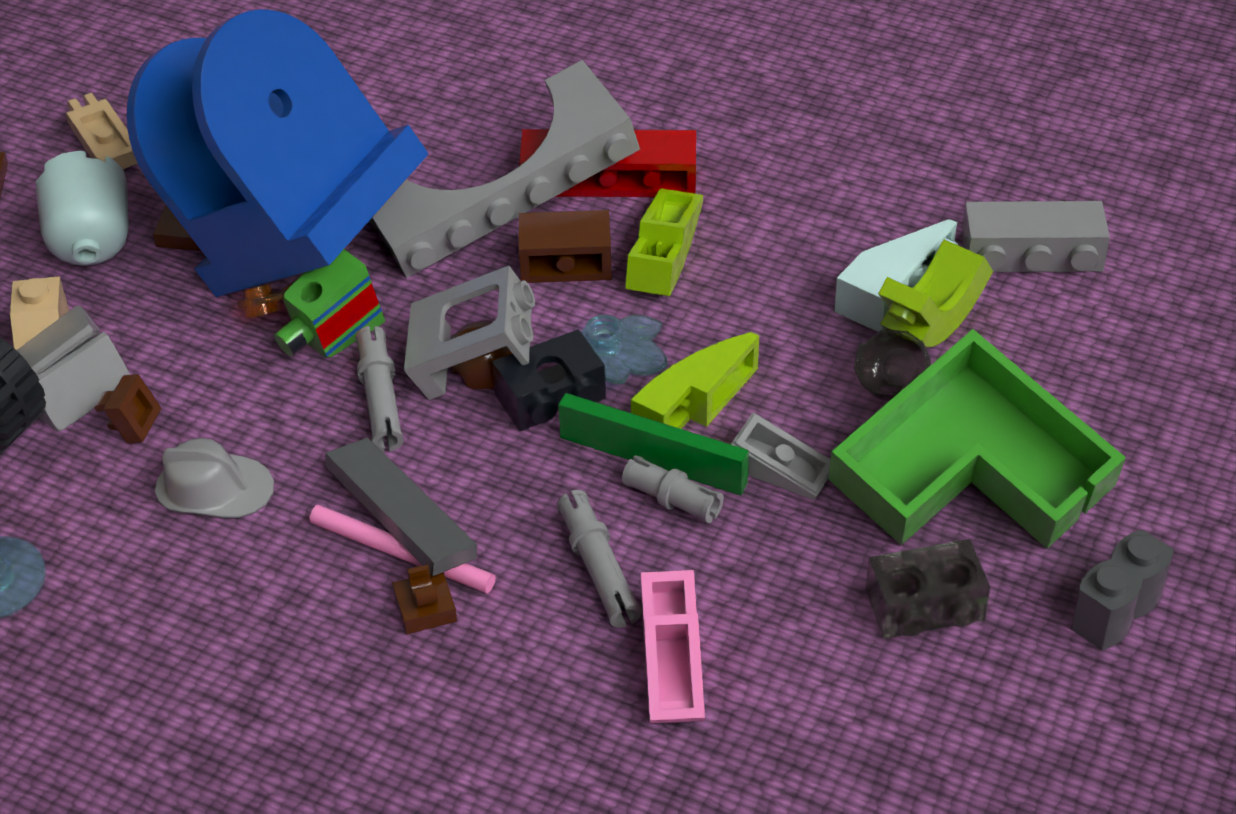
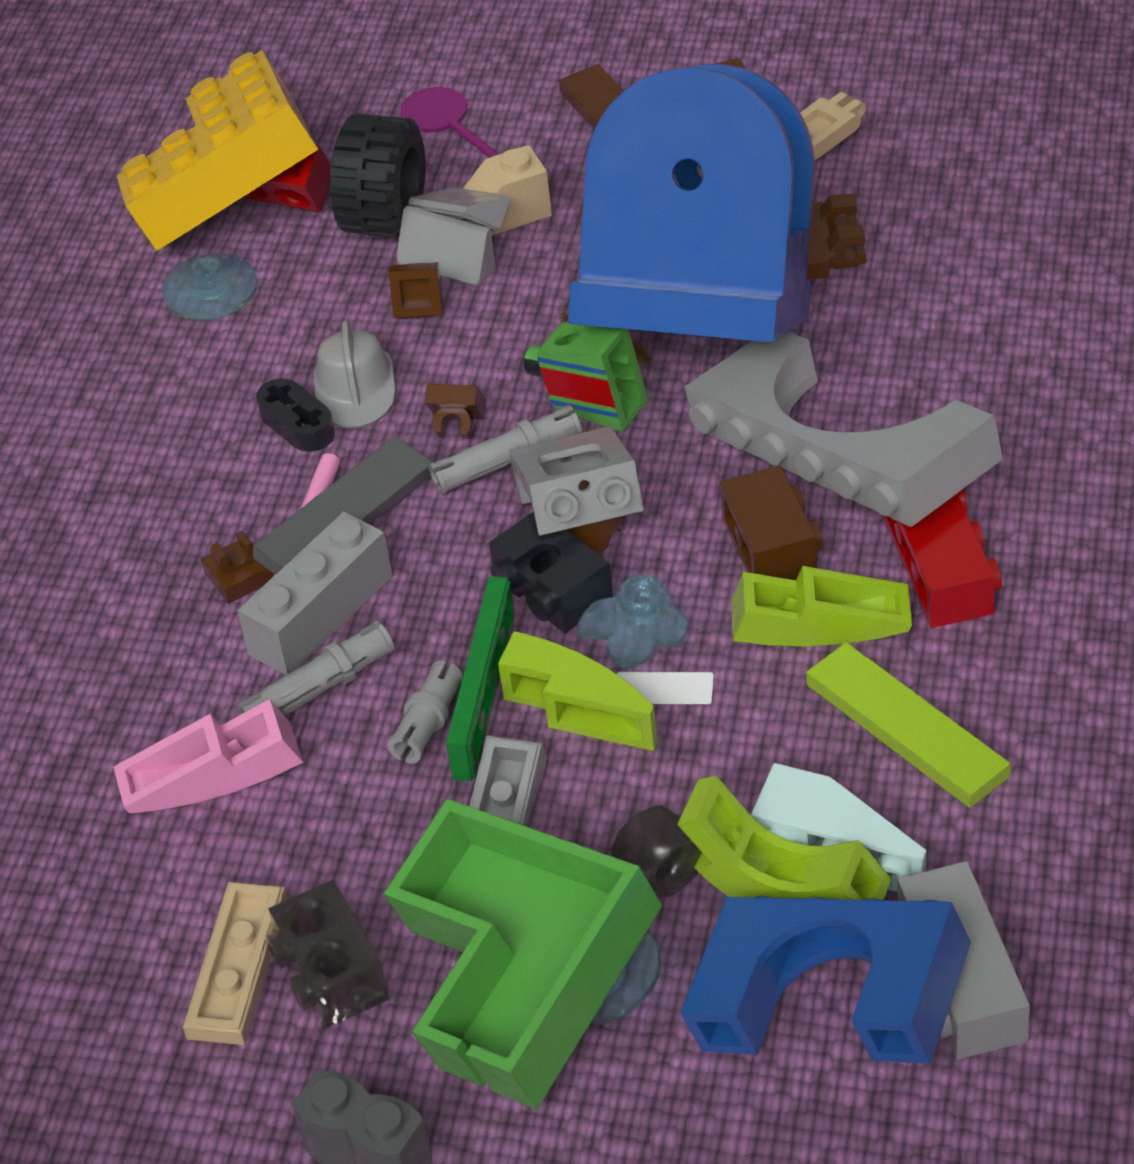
camera: 80 degrees right, 0 degrees up
(238, 529) = (303, 408): none -> black beam
(308, 408) = (455, 402): none -> reddish brown tile
(507, 535) = (315, 593): none -> light grey brick
(696, 337) = (672, 686): none -> white sticker
(793, 224) = (908, 725): none -> lime tile
(903, 664) = (233, 965): none -> tan tile
(1055, 231) = (769, 942): none -> blue arch

